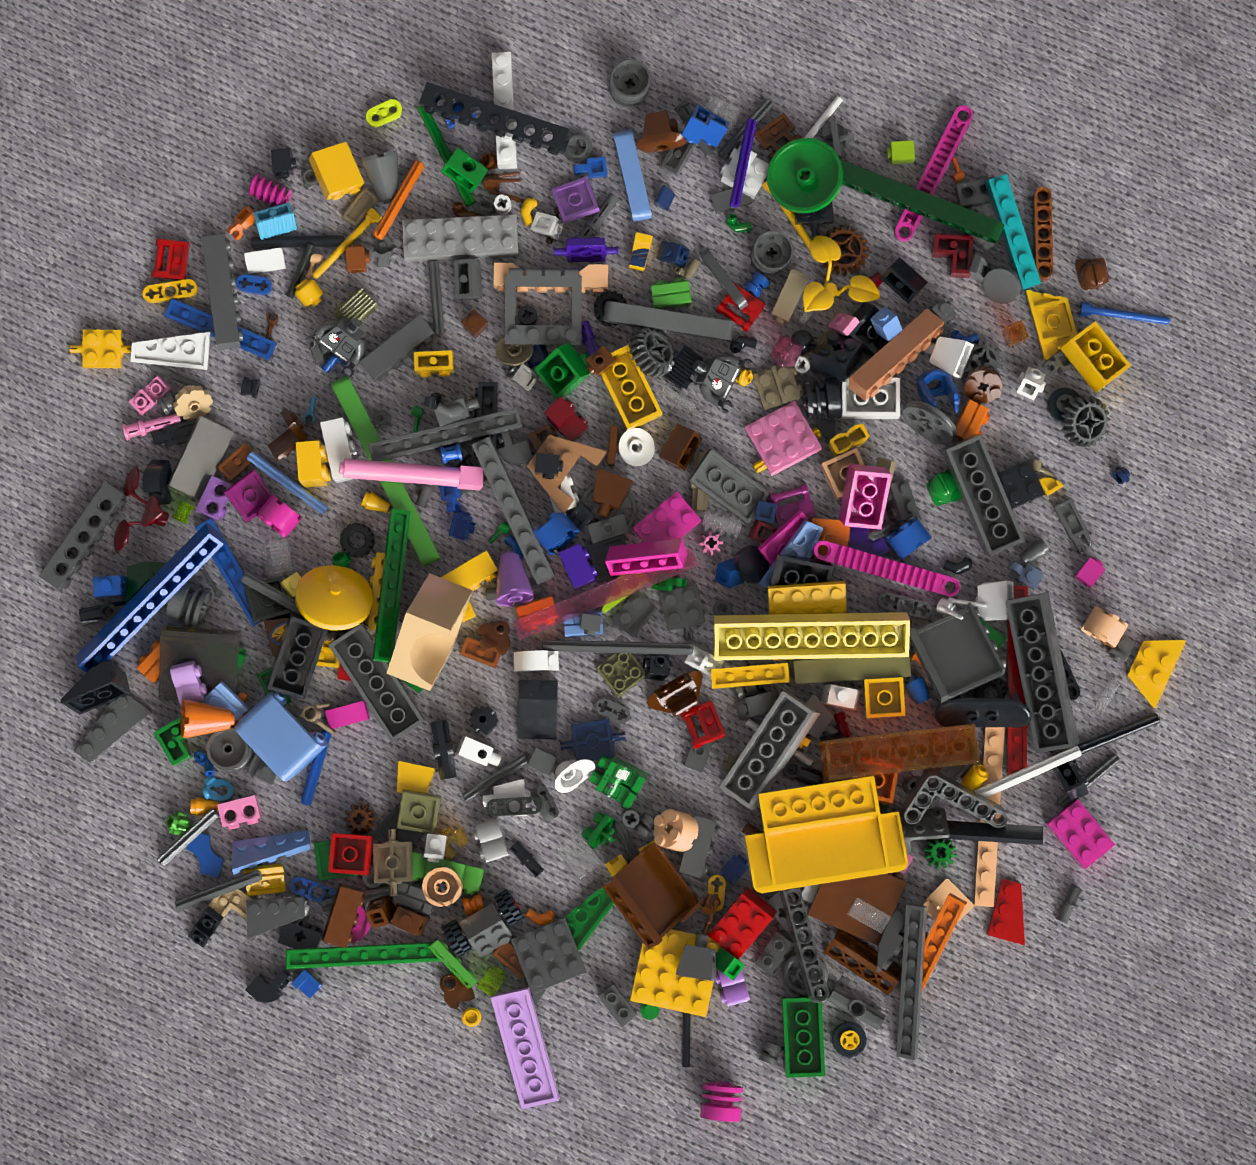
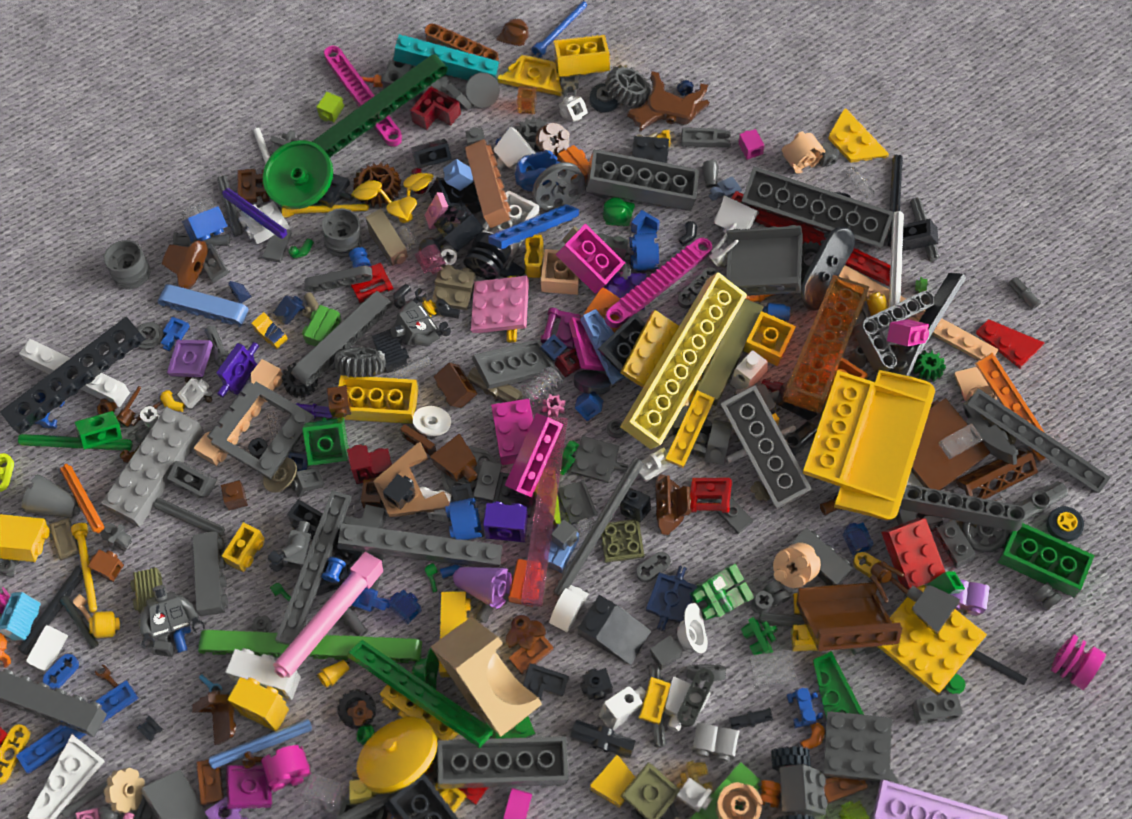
camera: 60 degrees left, 20 degrees down
(270, 484) = (252, 760): none -> reddish brown hand
(347, 547) = (360, 719): none -> reddish brown plate
(415, 576) = (427, 669): none -> green piece
(463, 673) = (542, 679): none -> black plate
(495, 774) = (654, 701): none -> yellow plate
(558, 898) = (805, 706): none -> blue piece
(751, 392) = (445, 310): none -> black arm
(873, 424) = (533, 226): none -> blue plate
(941, 522) = (644, 223): none -> blue panel
(949, 819) = (908, 332): none -> dark pink brick
(1022, 806) = (921, 285): none -> bright green plate
(1080, 834) = (969, 253): dark pink brick -> none
(1085, 471) = (668, 106): none -> reddish brown animal

